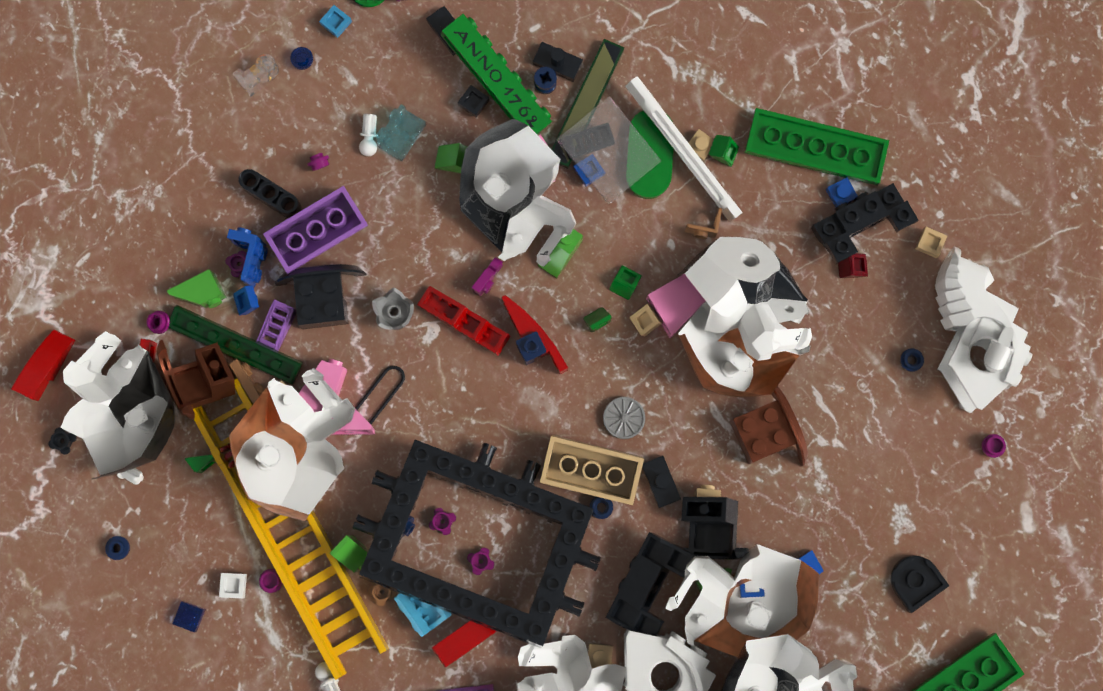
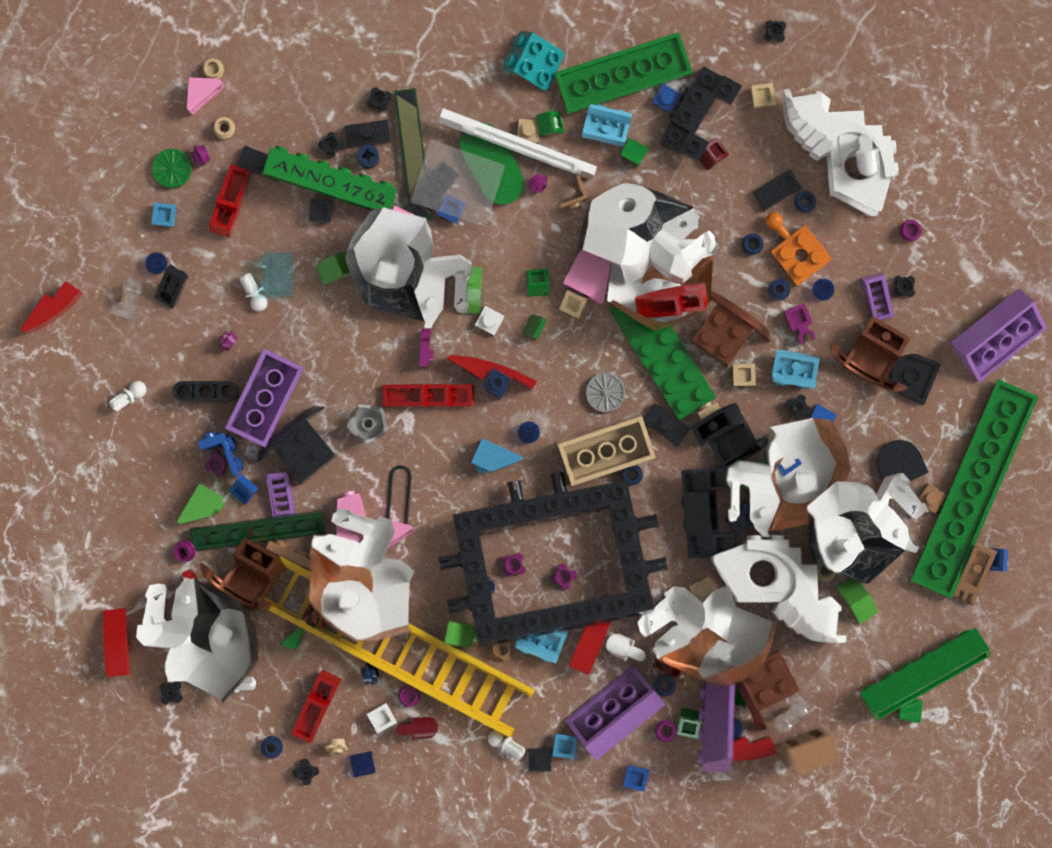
camera: 30 degrees left, 5 degrees up
(128, 596) = (305, 778): none -> black plate
(174, 585) = (336, 746): none -> tan plate
(181, 536) = (316, 706): none -> red slope
(185, 40) = (51, 308): none -> red slope
(212, 156) = (136, 390): none -> white axle
(247, 538) = (370, 674): none -> dark blue plate
(259, 616) = (419, 728): none -> dark red arm
(300, 83) = (171, 286): none -> black tile
(399, 44) = (229, 201): none -> red slope
(485, 412) = (493, 457): none -> dark azure slope
(493, 663) = (623, 647): none -> white arm
(521, 45) = (337, 145): none -> black plate
(532, 410) = (528, 432): none -> clear blue plate
(560, 289) = (489, 320): none -> white plate
(588, 32) = (376, 93): none -> black plate
(677, 615) = (743, 521): none -> dark blue bracket
(680, 195) = (538, 183): none -> magenta plate
(696, 427) = (667, 364): none -> green plate
(738, 371) = (672, 301): none -> red slope
(744, 86) = (533, 59): none -> teal bracket
(760, 481) = (743, 375): none -> tan plate
(774, 181) = (606, 125): none -> medium azure bracket
(782, 221) = (634, 152): none -> green slope
(786, 546) = (795, 413): none -> black plate
(811, 505) = (795, 369): none -> medium azure bracket
(832, 424) = (776, 296): none -> dark blue plate
(842, 462) = (799, 319): none -> magenta plate
(845, 363) = (752, 237): none -> dark blue plate
(860, 649) = (901, 457): none -> black tile
(880, 449) = (823, 289): none -> clear blue plate
(887, 391) = (785, 251): none -> orange plate
(892, 334) = (777, 190): none -> black tile
(894, 538) = (875, 354): none -> copper piece
(918, 485) = (865, 281): none -> medium lavender slope
(964, 492) = (908, 291): none -> black plate
(982, 191) = (779, 26): none -> black plate
(1021, 593) = (999, 335): none -> medium lavender slope

